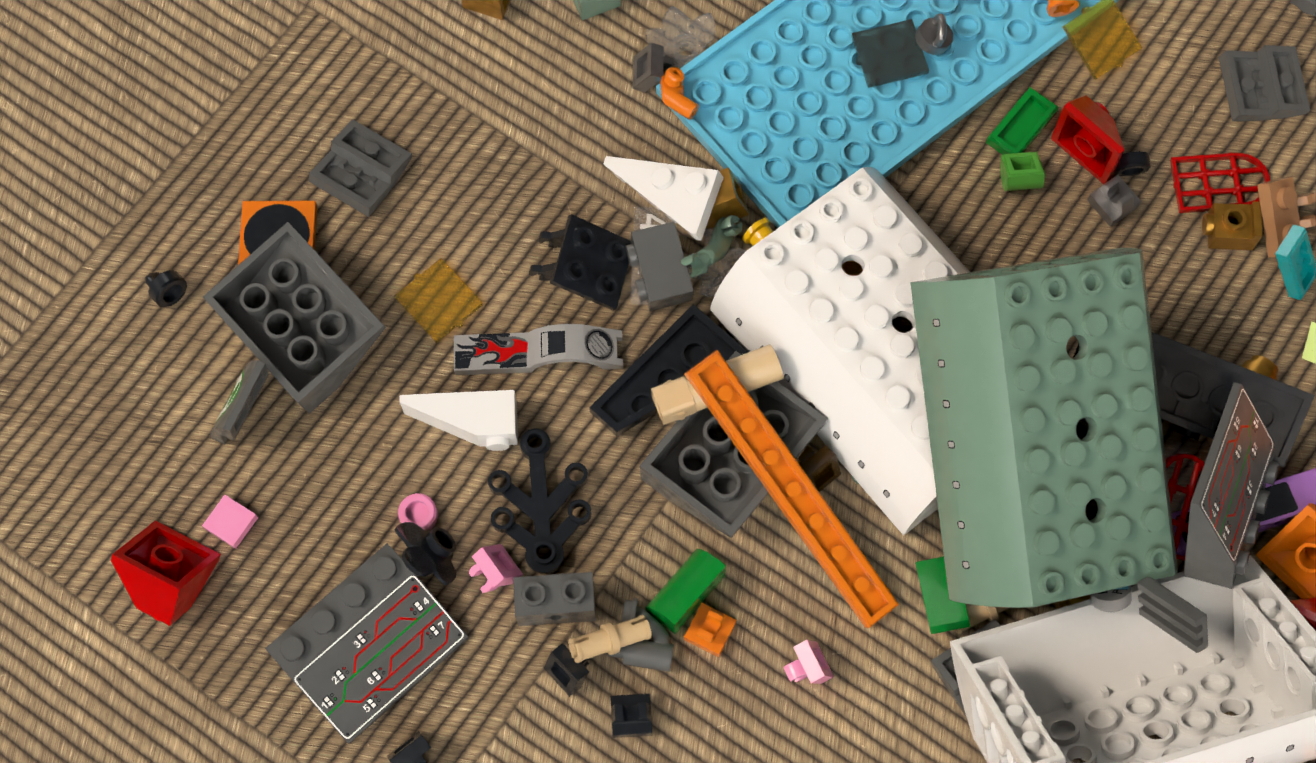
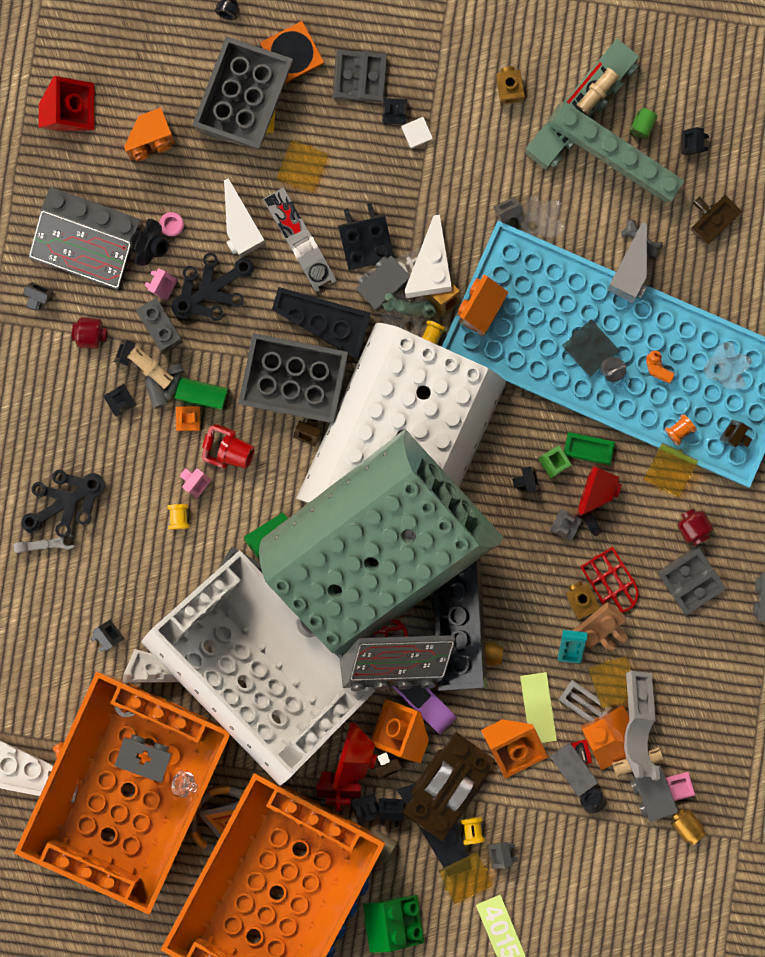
camera: 70 degrees right, 15 degrees up
(230, 521) = (114, 124): bright pink tile -> none
(240, 402) = (178, 91): dark grey slope -> none
(277, 466) = (149, 135): none -> orange slope
(434, 146) = (394, 111): none -> black tile
(479, 133) = (417, 133): none -> white tile
(509, 708) = (89, 333): none -> dark red head
(673, 93) = (494, 234): orange arm -> none
(679, 399) = (318, 351): tan piece -> none
(763, 149) = (482, 306): none -> orange slope
(791, 489) = (281, 422): orange tile -> none
(795, 583) = (231, 450): none -> red piece
(850, 714) = (178, 516): none -> yellow bush
(1031, 214) = (528, 479): none -> black tile
(1173, 614) = (303, 659): dark grey tile -> none
(1194, 43) = (695, 526): none -> dark red head

